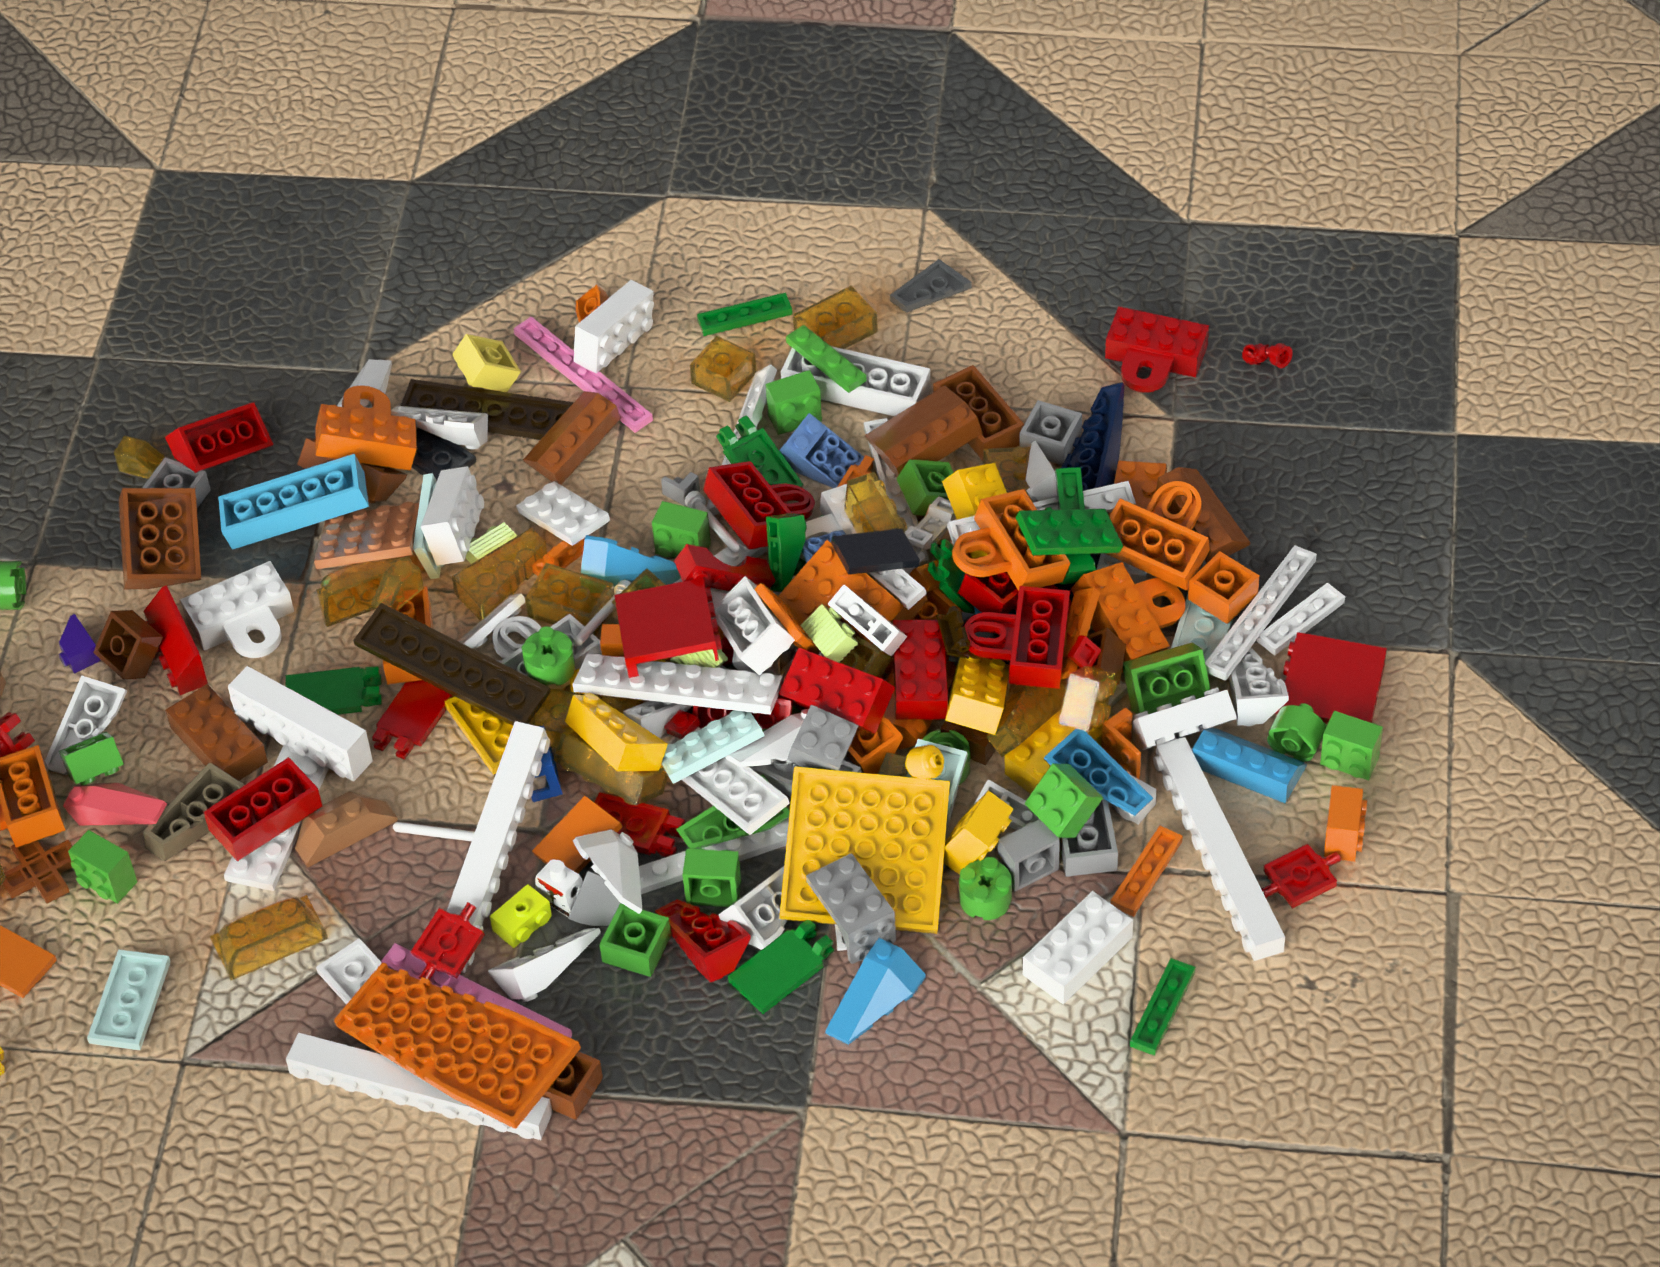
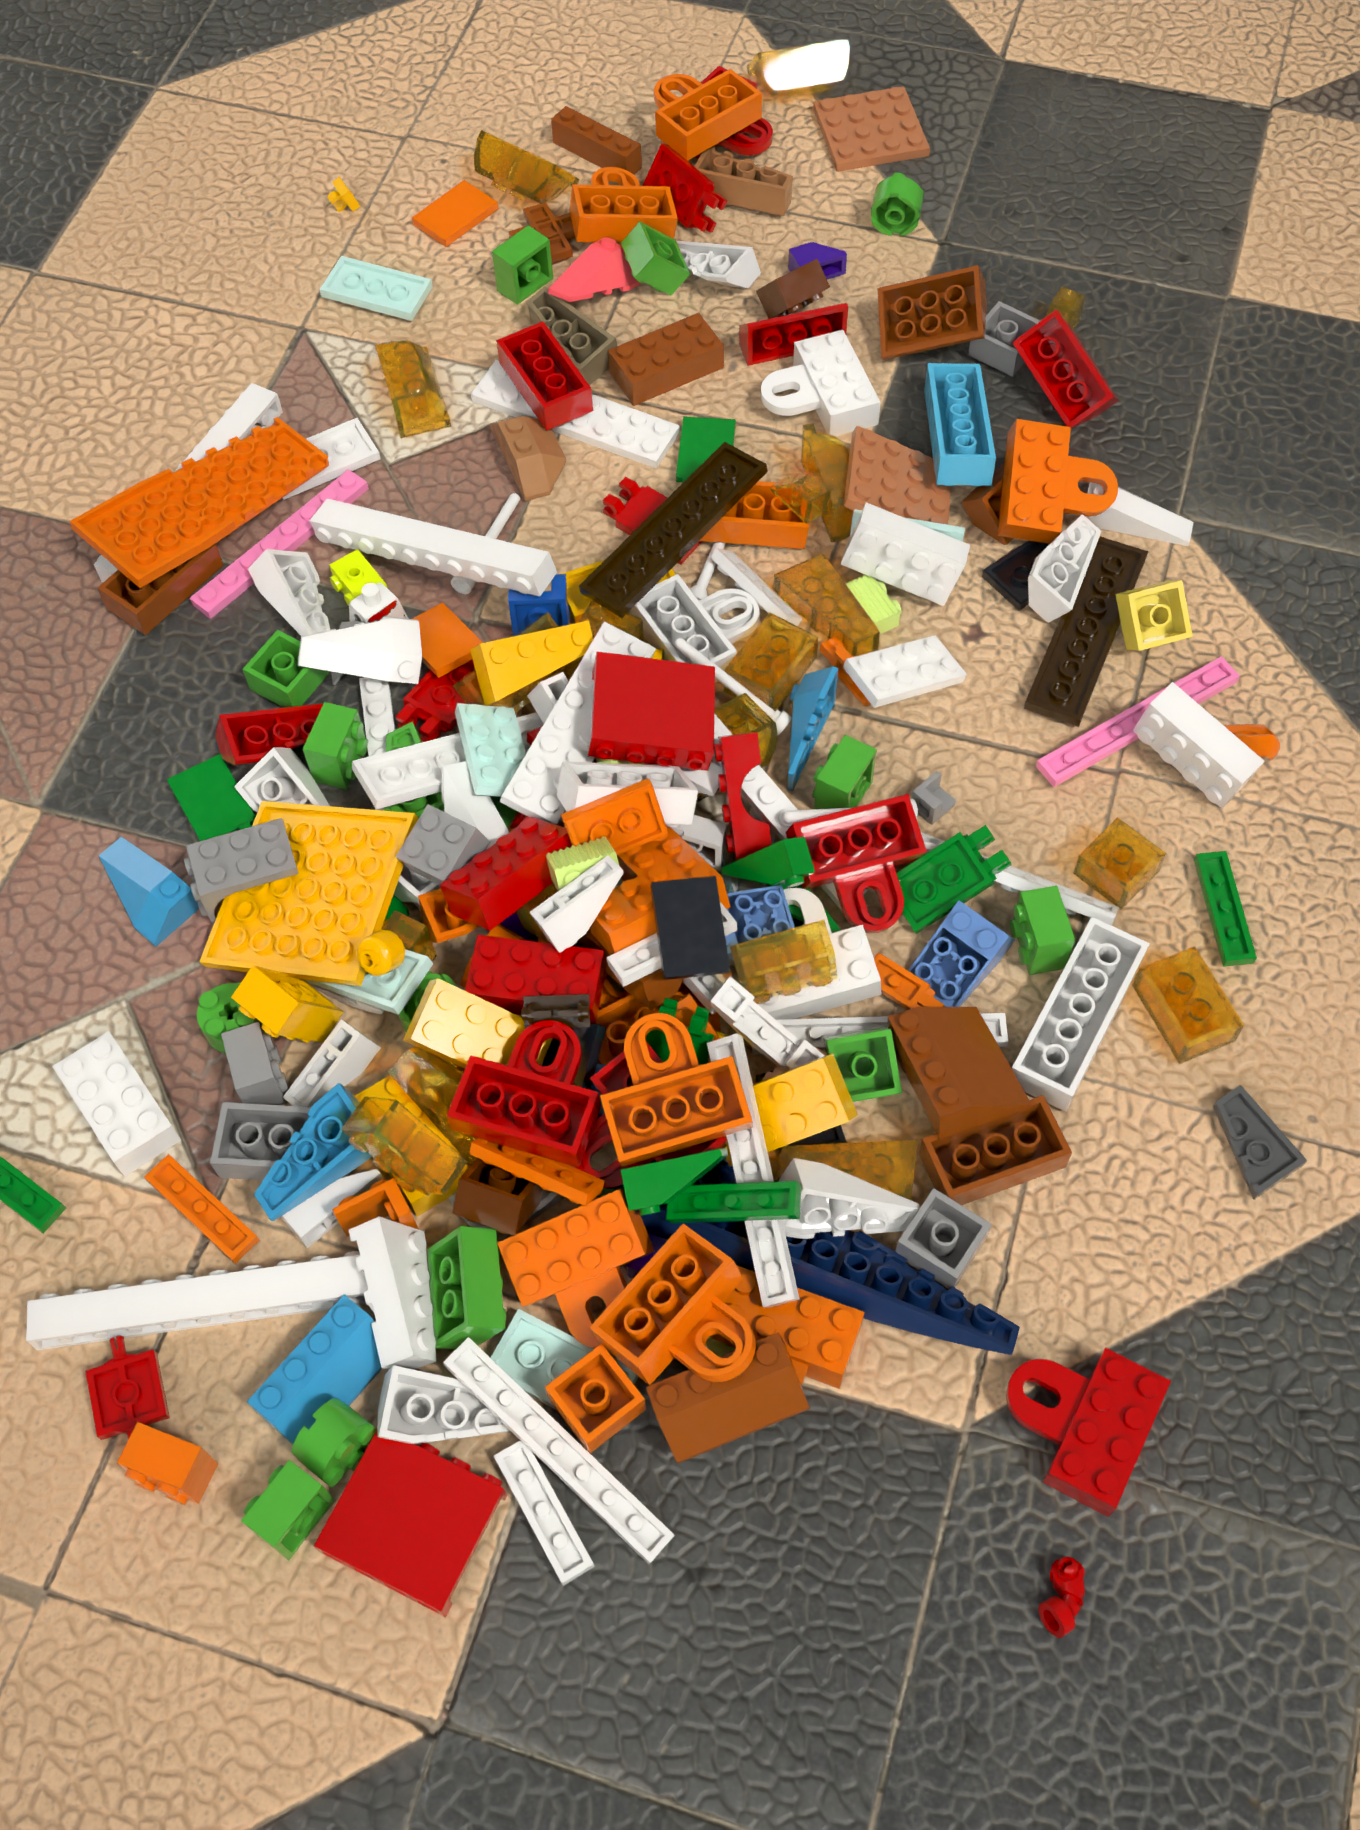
camera: 100 degrees right, 10 degrees up
(300, 724) = (640, 406): white brick -> none
(448, 942) = (325, 504): red plate -> none
(549, 657) = (661, 613): bright green brick -> none
(573, 437) = (1021, 690): dark orange slope -> none
(826, 358) = (1102, 969): bright green plate -> none
(1063, 800) = (272, 1095): bright green brick -> none
(1069, 531) = (671, 1170): green plate -> none
(1084, 652) = (485, 1162): red plate -> none

